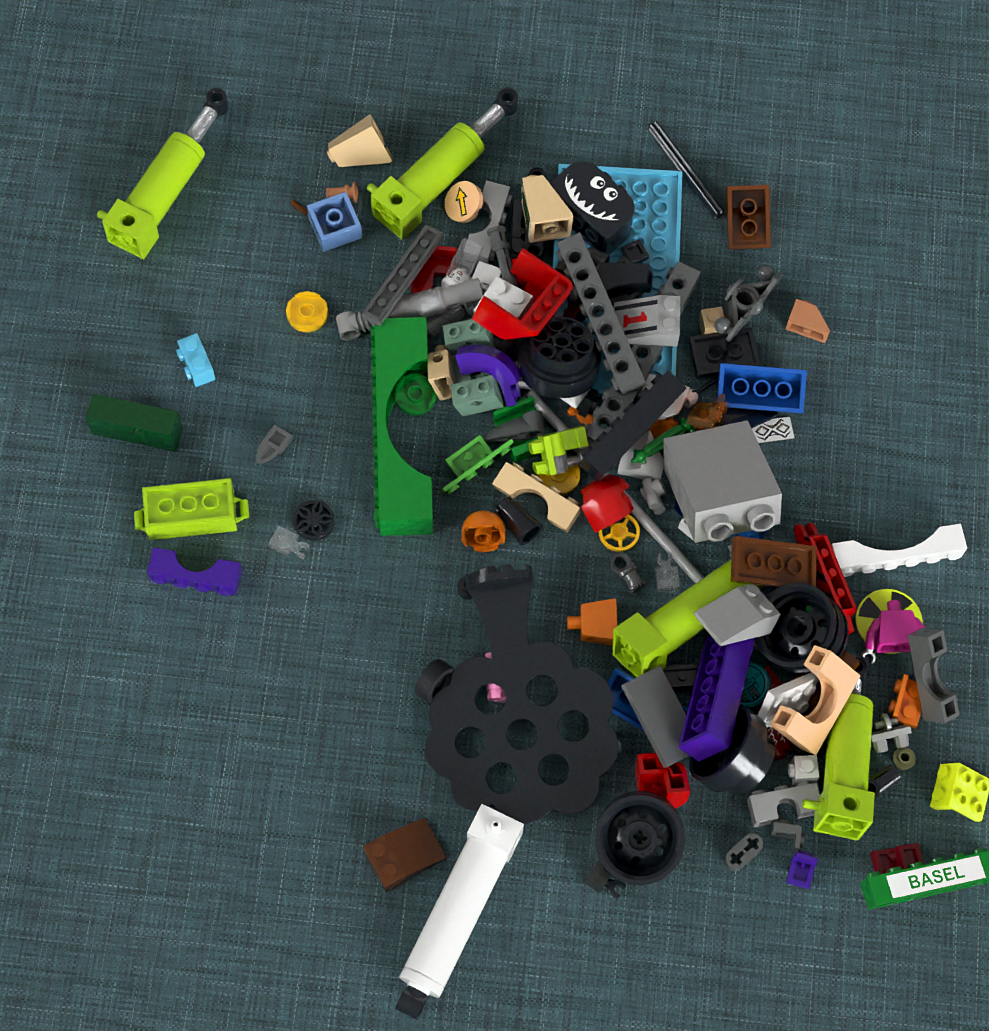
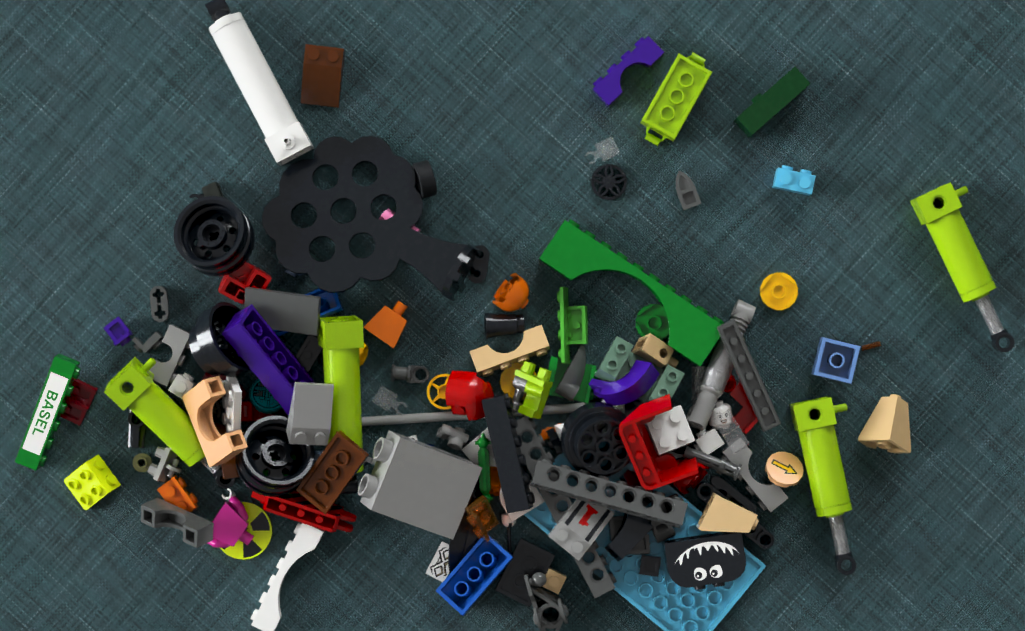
camera: 125 degrees right, 20 degrees up
(352, 191) = (858, 386): nougat pin -> none

